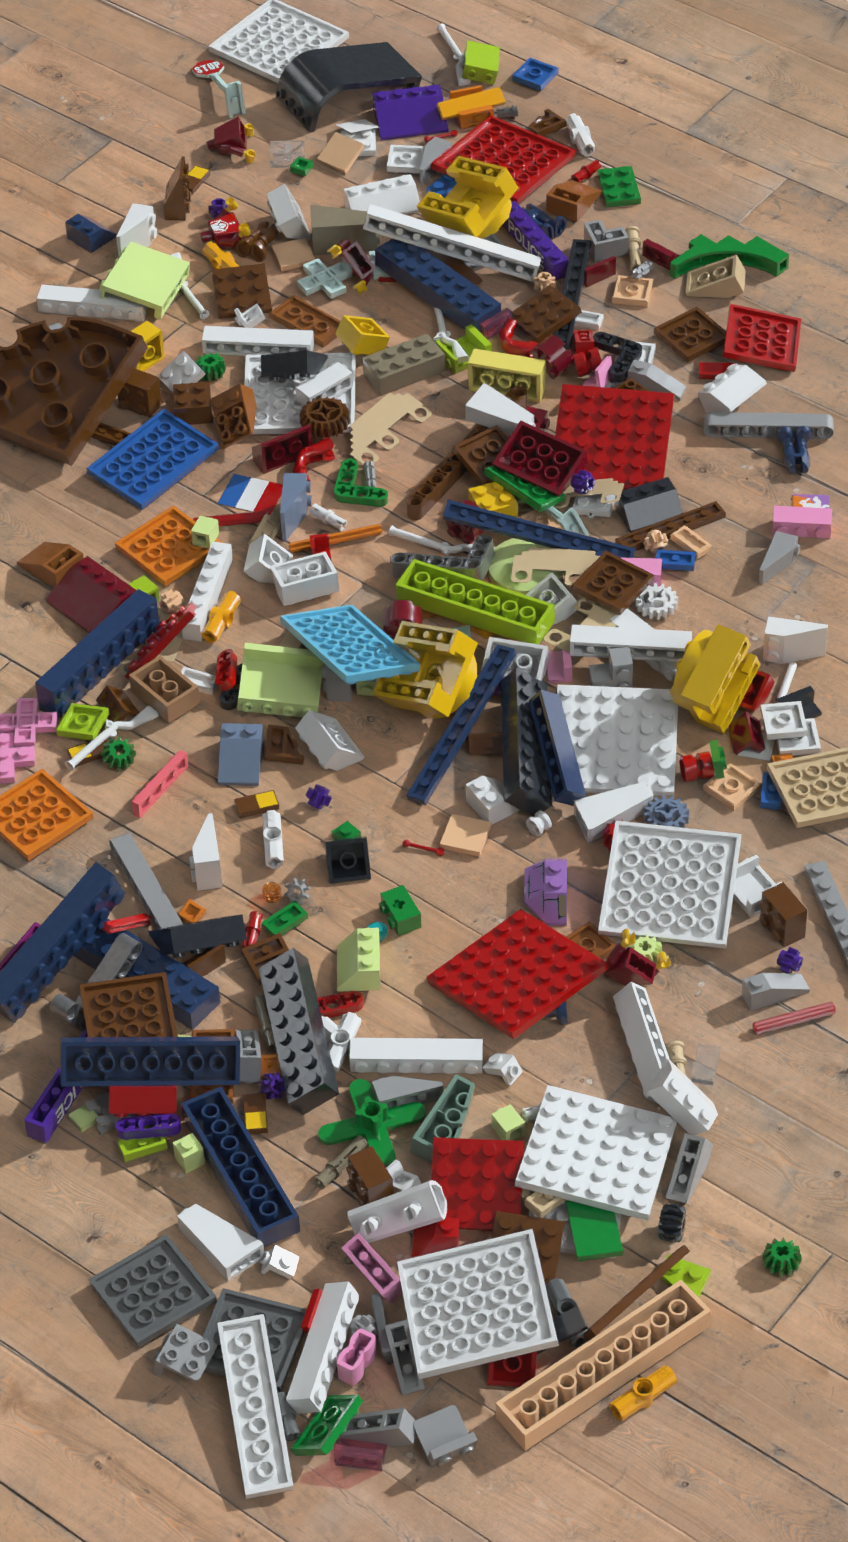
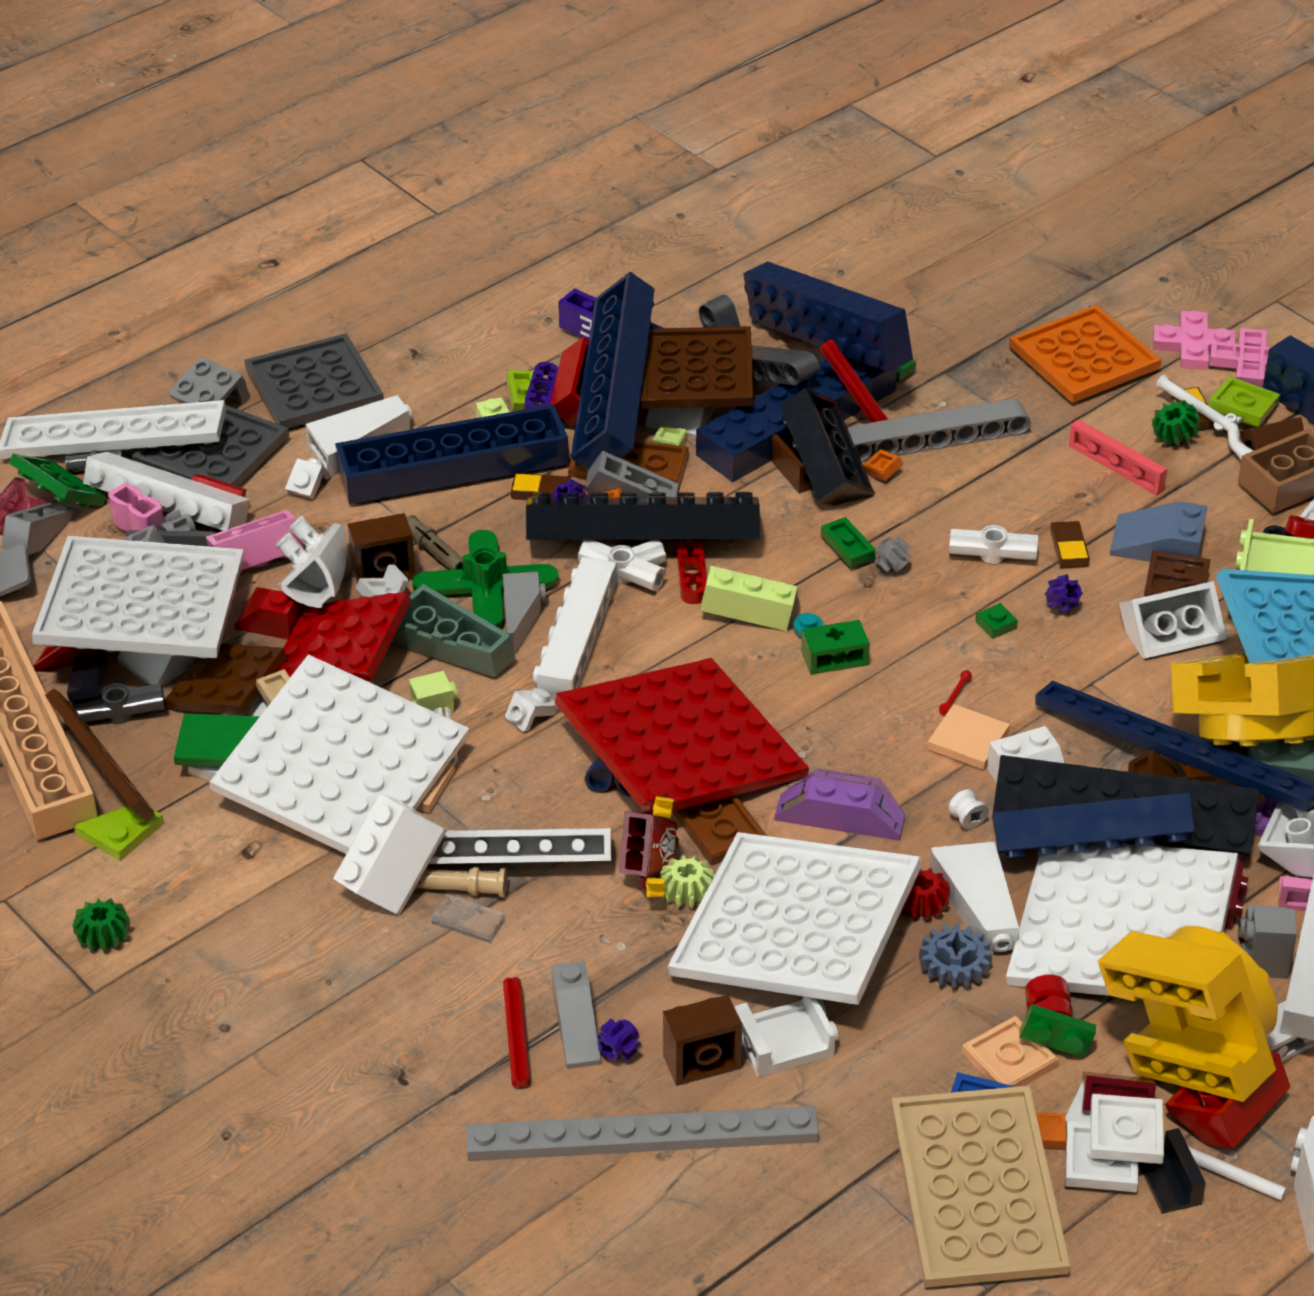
camera: 100 degrees right, 5 degrees down
(206, 858) = (971, 474): white slope -> none
(252, 929) = (837, 511): red axle -> none
(262, 953) = (790, 519): reddish brown wing -> none
(268, 896) = (907, 534): clear orange bush -> none
(347, 859) = (944, 608): black slope -> none
(672, 1223) = (199, 817): black gear -> none
(689, 1167) = (291, 858): light grey slope -> none

